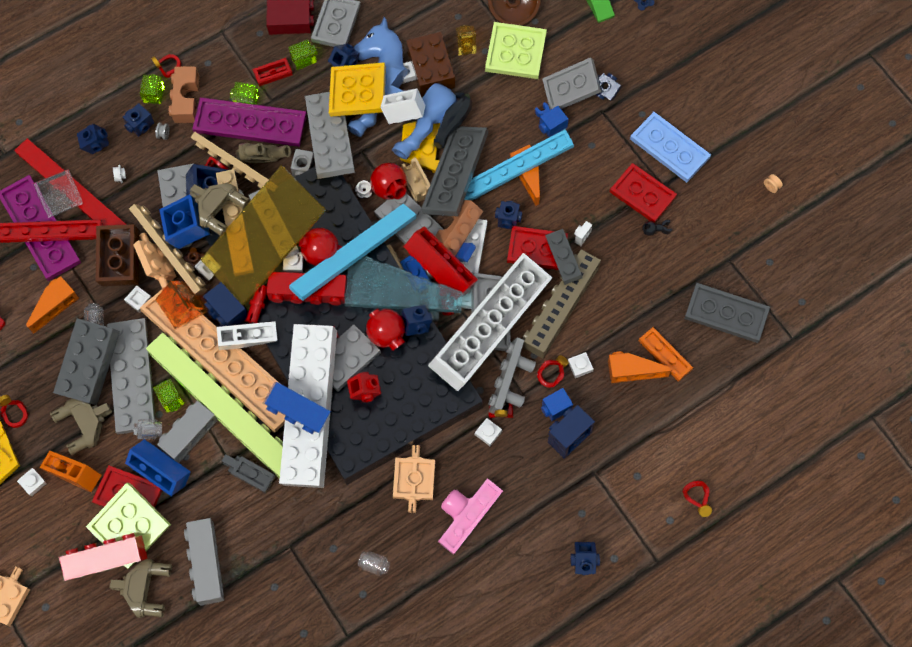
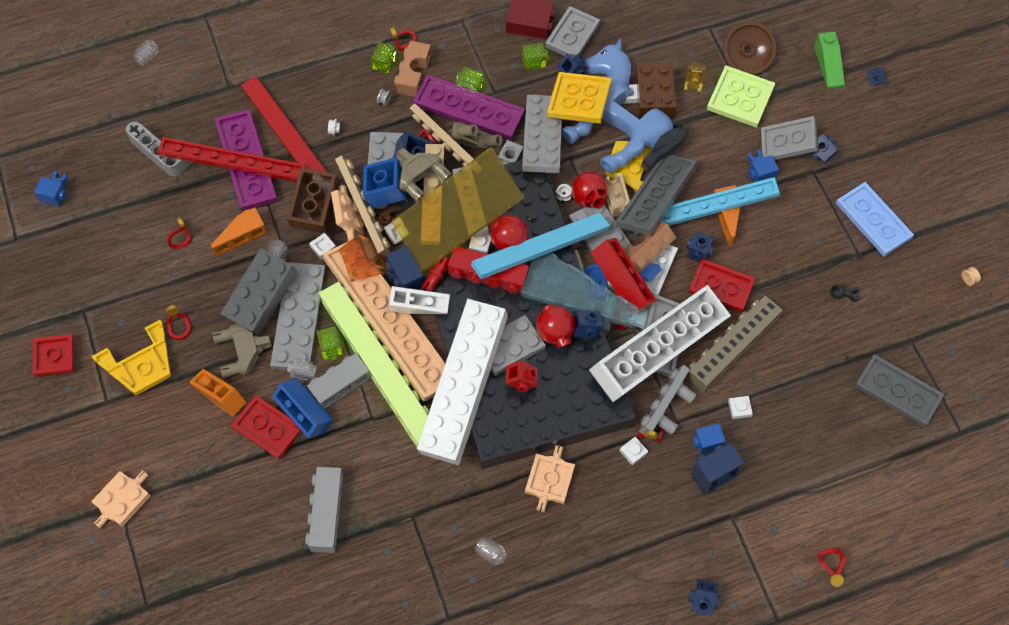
camera: 10 degrees right, 5 degrees down
(31, 482) = (178, 394): white plate -> none
(58, 193) = (271, 131): clear slope -> none
(92, 139) = (317, 89): dark blue brick -> none
(104, 557) = (228, 481): brick -> none
(128, 514) = (260, 456): yellowish green plate -> none
(136, 586) = (253, 516): dark tan connector -> none
(138, 120) = (363, 82): dark blue brick -> none
(249, 472) = (389, 434): dark grey hinge -> none
(273, 74) = (502, 68): red tile -> none
(296, 408) = (451, 378): blue wedge -> none
(403, 106) = (620, 121): white brick -> none
(466, 513) = (594, 524): bright pink plate -> none
(561, 361) = (722, 401): red piece -> none
(563, 256) = (746, 298): dark grey plate -> none
(582, 233) = (769, 281): white plate -> none
(632, 368) = (791, 421): orange slope -> none
(643, 193) = (838, 256): red plate -> none
(665, 353) = (828, 416): orange tile -> none

